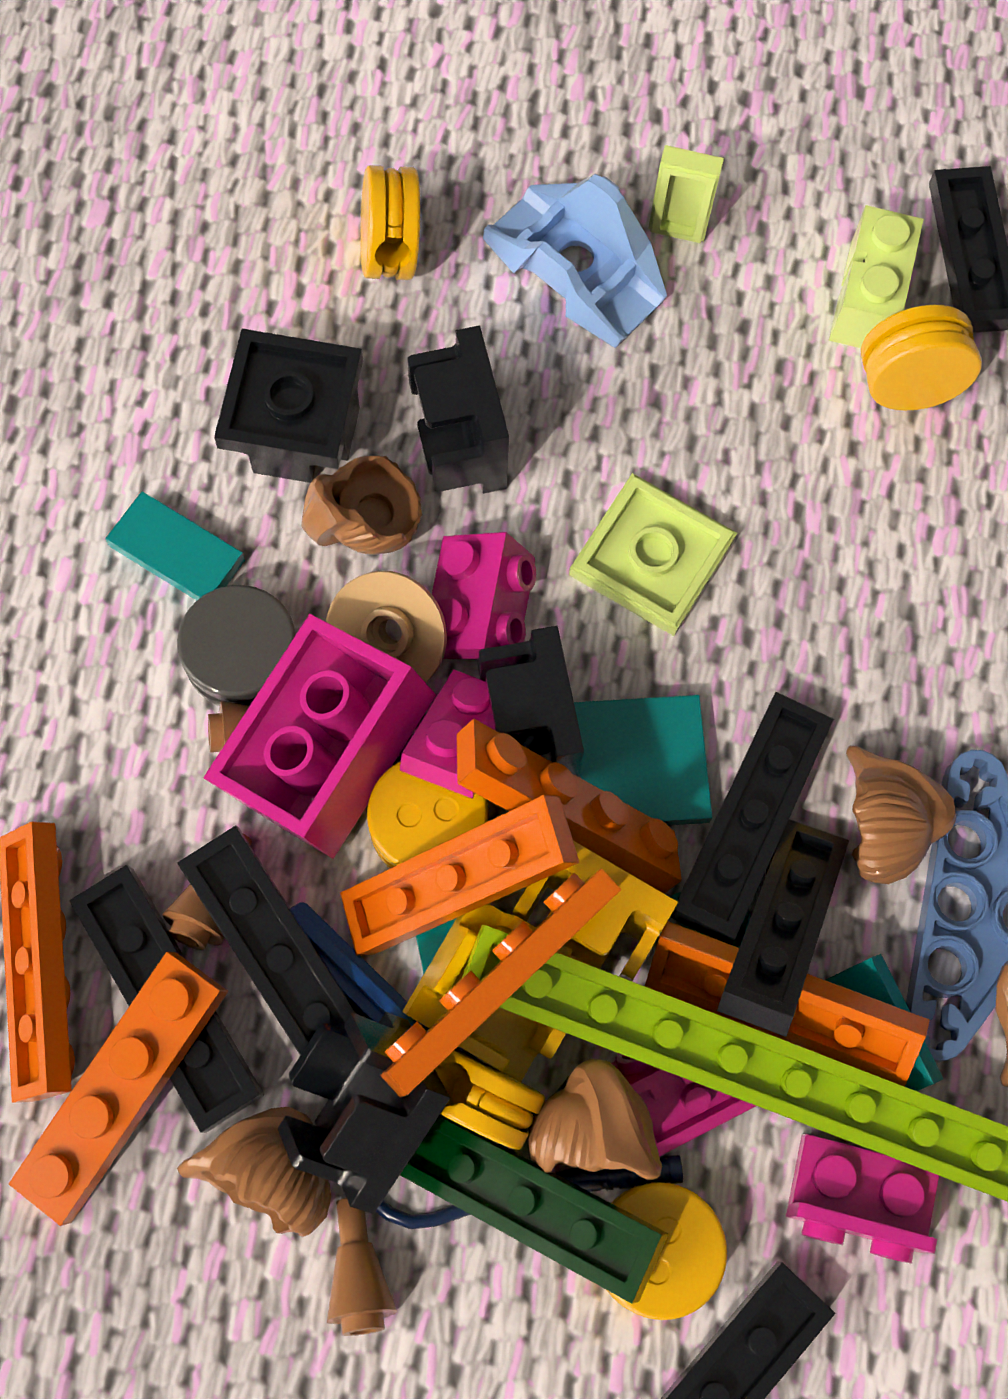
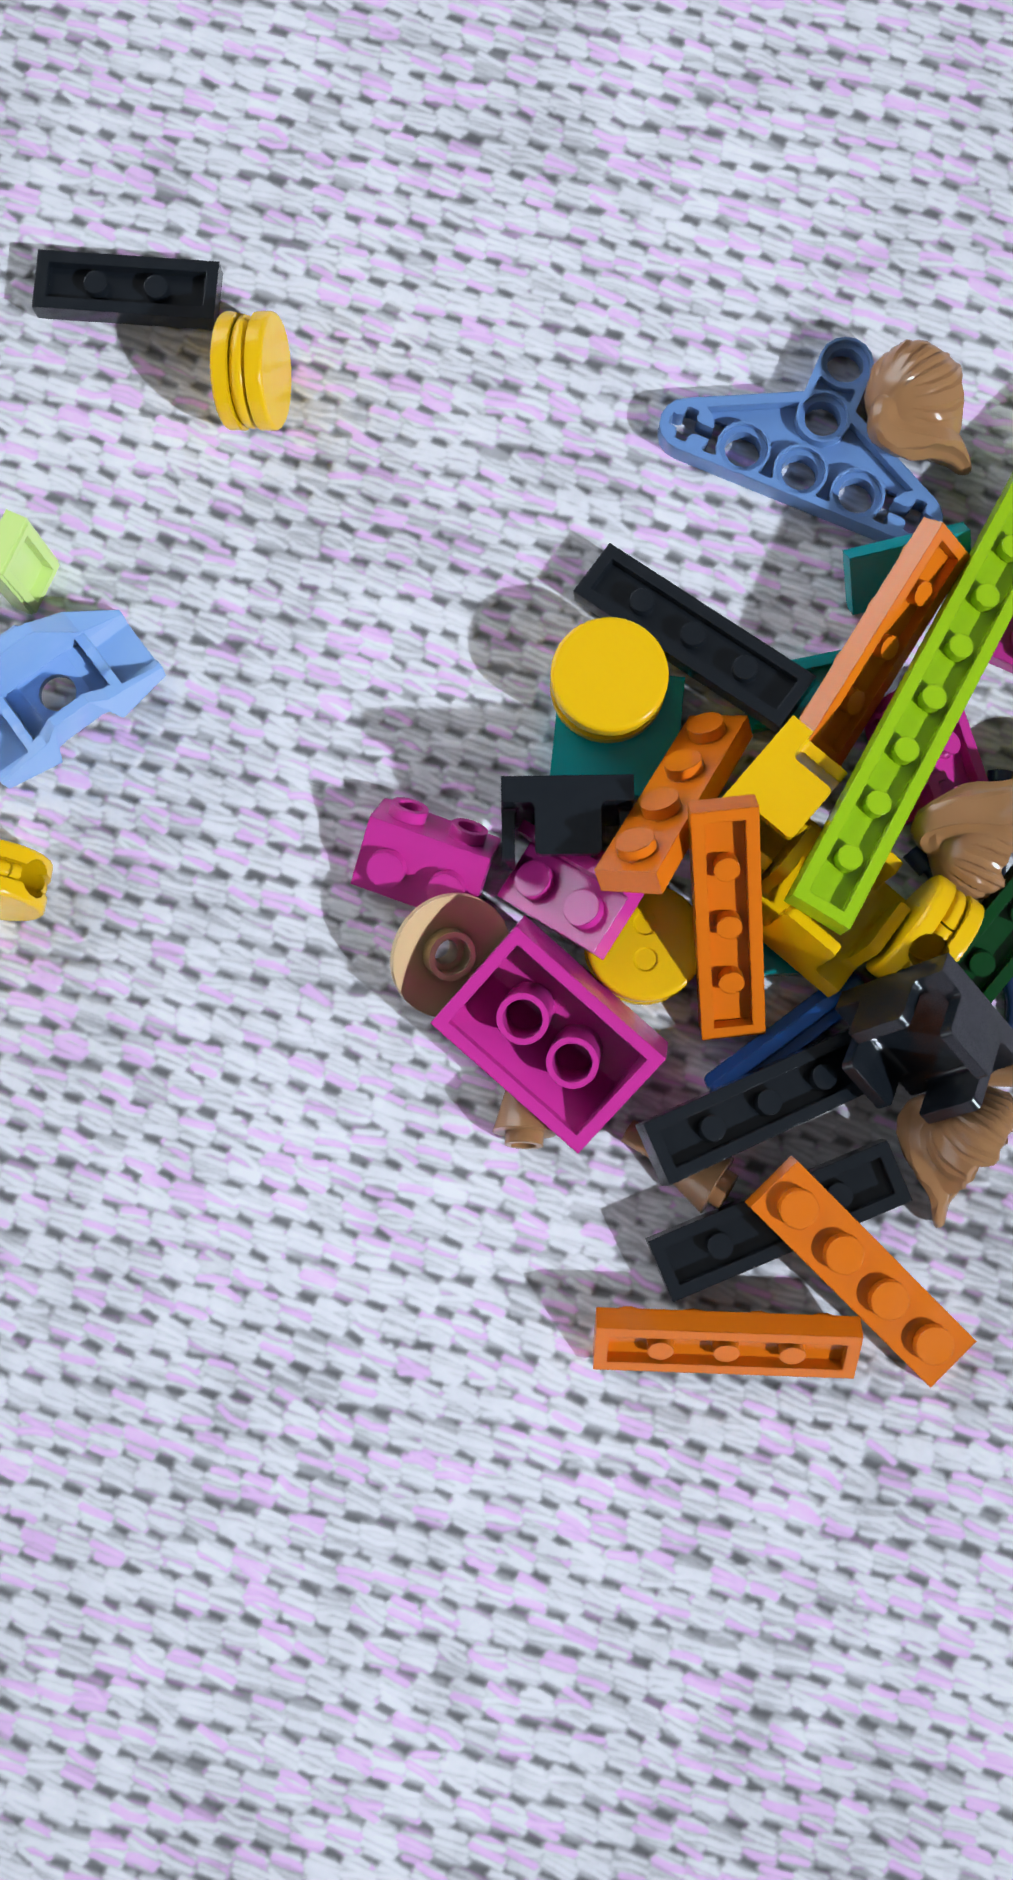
camera: 75 degrees left, 10 degrees up
(174, 548) = (313, 1158): teal tile -> none
(233, 642) = (435, 1104): dark grey head -> none
(290, 404) = (182, 1013): black panel -> none
(363, 506) = (312, 955): medium nougat hair -> none
(463, 416) = (232, 837): black panel -> none
(474, 1000) = (870, 903): orange plate -> none
(652, 554) = (403, 680): yellowish green tile -> none
(688, 735) = (608, 679): none -> yellow head
(784, 928) = (821, 626): black plate -> none
(881, 284) = (171, 398): yellowish green piece -> none
(896, 815) = (714, 507): medium nougat hair -> none

